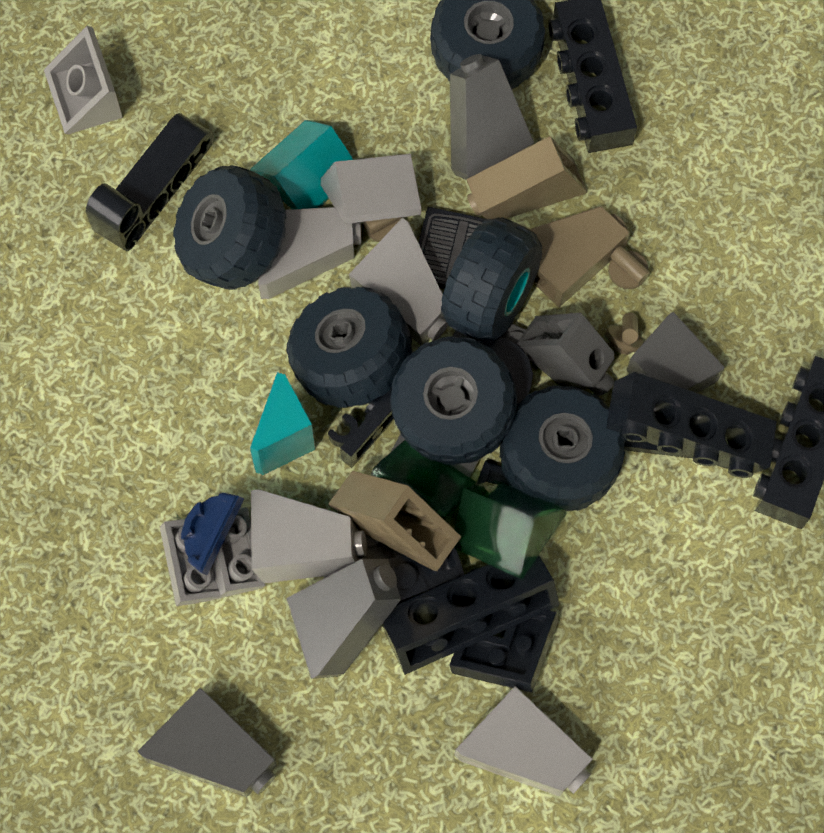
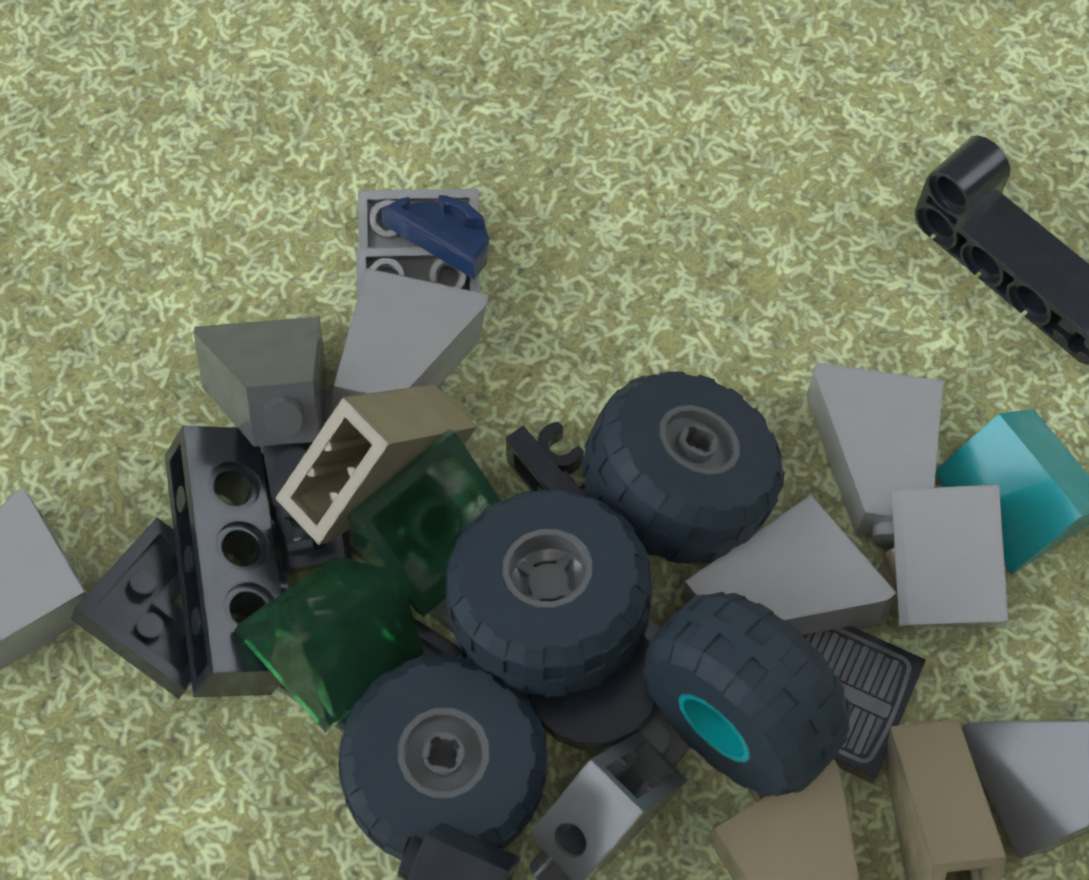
camera: 105 degrees right, 5 degrees down
(210, 748) = (146, 197): dark grey slope -> none
(229, 227) = (914, 330): black wheel -> none
(282, 430) = (578, 348): teal slope -> none

